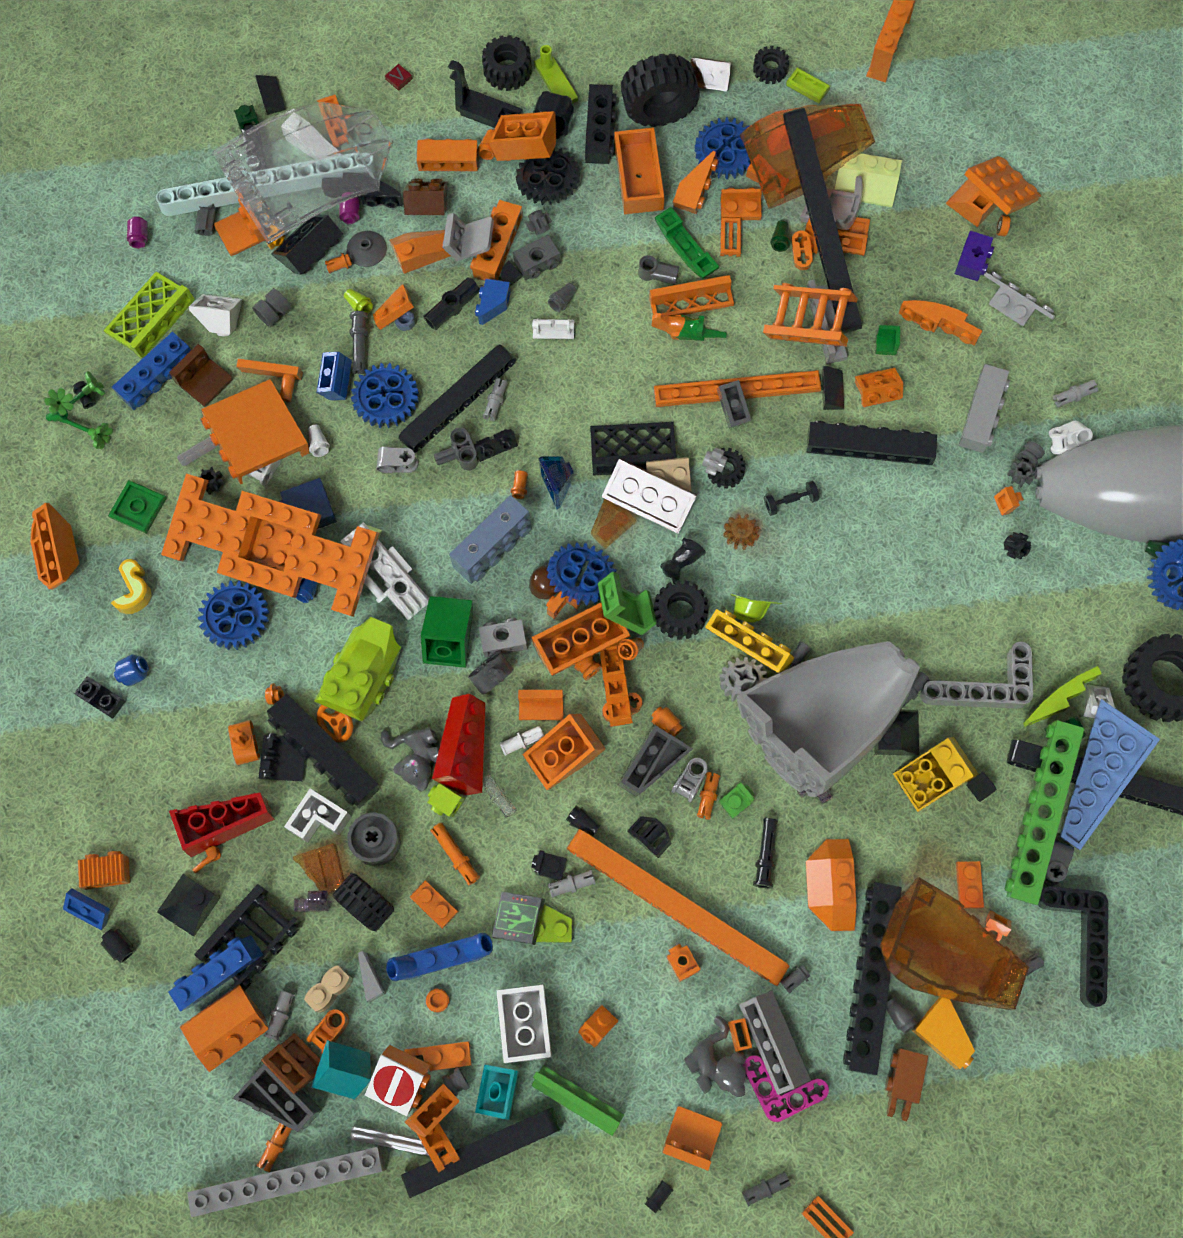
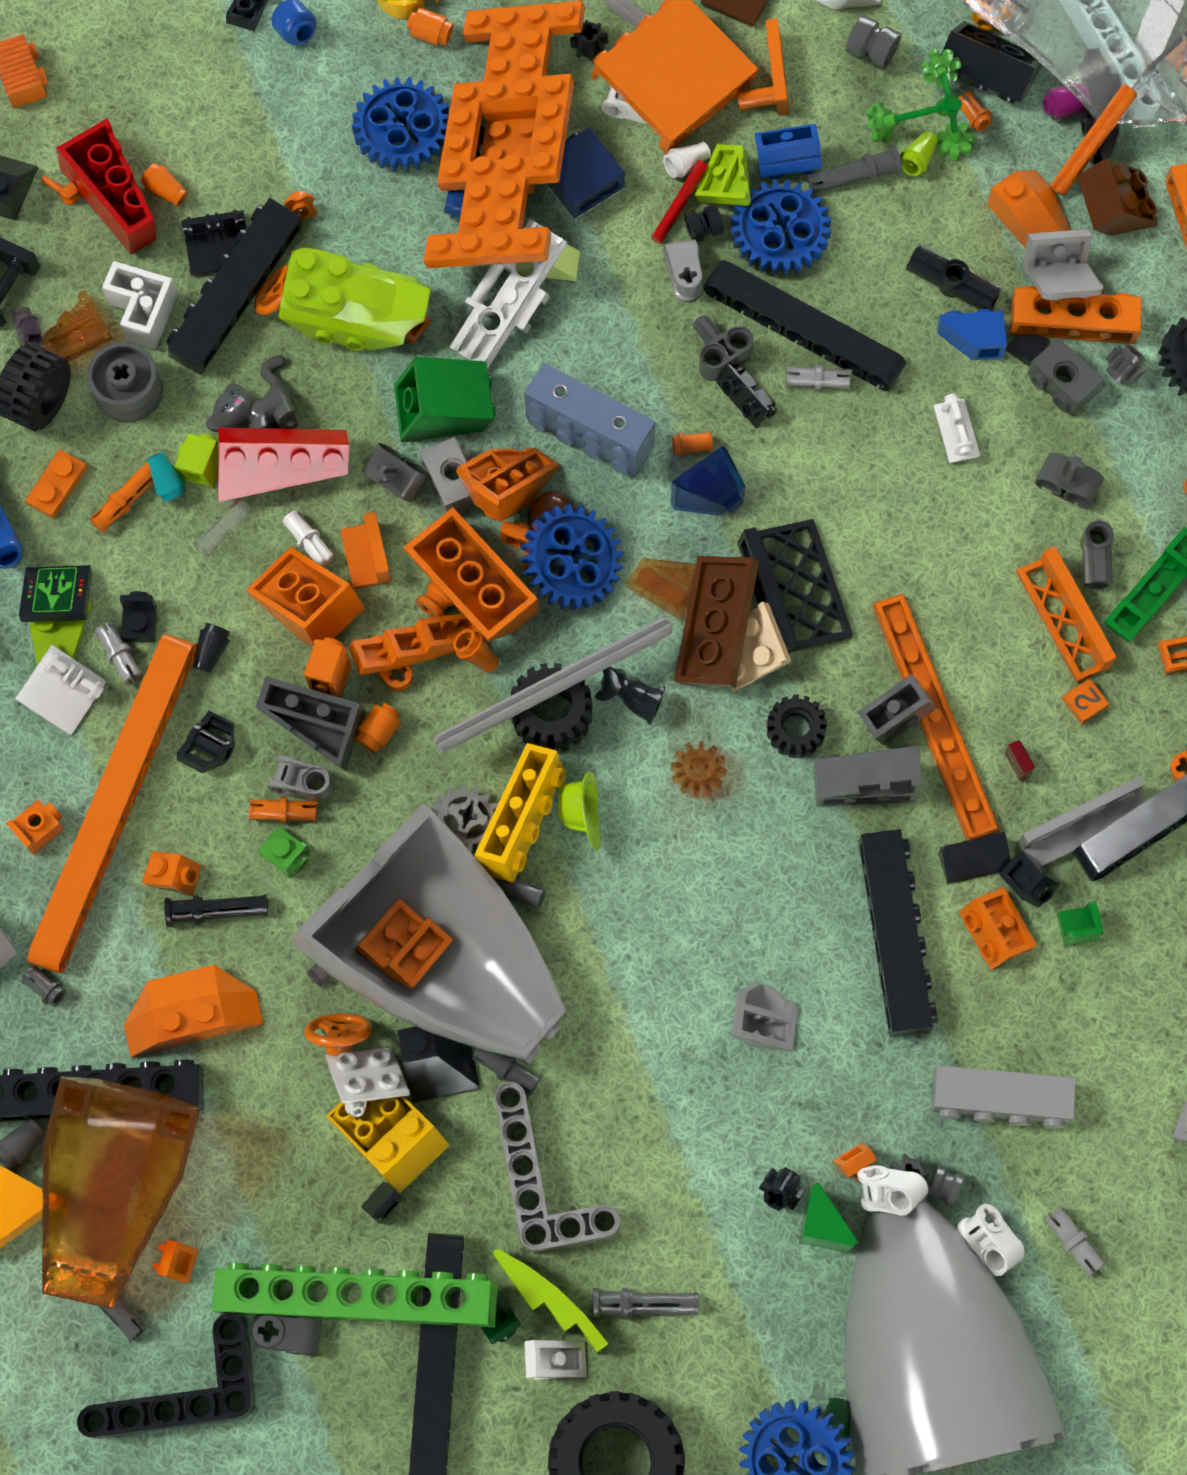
camera: 75 degrees right, 0 degrees up
(165, 580) = (430, 27): none -> orange brick
(228, 785) = (163, 184): none -> orange cone
(243, 742) = (225, 185): orange beam -> none
(340, 418) = (726, 177): none -> lime wing
(347, 452) = (679, 202): none -> red bar
(353, 279) = (956, 138): none -> bright green plant
(368, 255) = (1012, 155): dark grey dish -> none
(368, 442) = (704, 223): none -> black wheel
(386, 196) = (1093, 139): none -> orange axle
(393, 307) = (922, 202): orange wing -> none
(405, 321) = (909, 223): sand blue tile -> none
(454, 825) = (166, 479): none -> teal cone
(517, 601) = (506, 479): none -> orange wedge
(560, 299) = (1010, 428): dark grey cone -> none
(589, 927) = (61, 690): none -> white hinge
(604, 273) = (1069, 479): none -> dark grey beam
(622, 742) = (328, 667): none -> orange brick
(624, 607) = (531, 623): bright green panel -> none
(673, 601) = (552, 685): none -> light grey axle
(684, 327) = (1013, 617): animal -> none
(715, 461) = (791, 699): light grey gear -> none
(735, 878) = (172, 872): none -> orange bracket
(747, 303) = (1085, 701): none -> orange tile
(771, 432) = (868, 777): none -> dark grey wedge
(778, 347) = (1019, 760): none -> dark red tile
(811, 491) = (754, 803): black wheel -> none
(815, 333) = (1047, 802): orange fence -> none
(819, 734) = (403, 944): none -> orange slope
(854, 361) = (1029, 880): none -> black bracket
(870, 789) = (338, 1036): none -> orange piece
(902, 776) = (366, 1077): none -> white hinge
(908, 530) = (764, 1018): none -> light grey slope
(934, 315) = (1145, 988): orange slope -> none
(970, 884) = (230, 1212): orange plate -> none
(1035, 480) = (891, 1190): none -> white piece
(1044, 525) = (824, 1225): none -> green slope
(1070, 652) = (687, 1303): none -> dark grey pin
(1109, 763) = (450, 1381): medium blue wing -> none

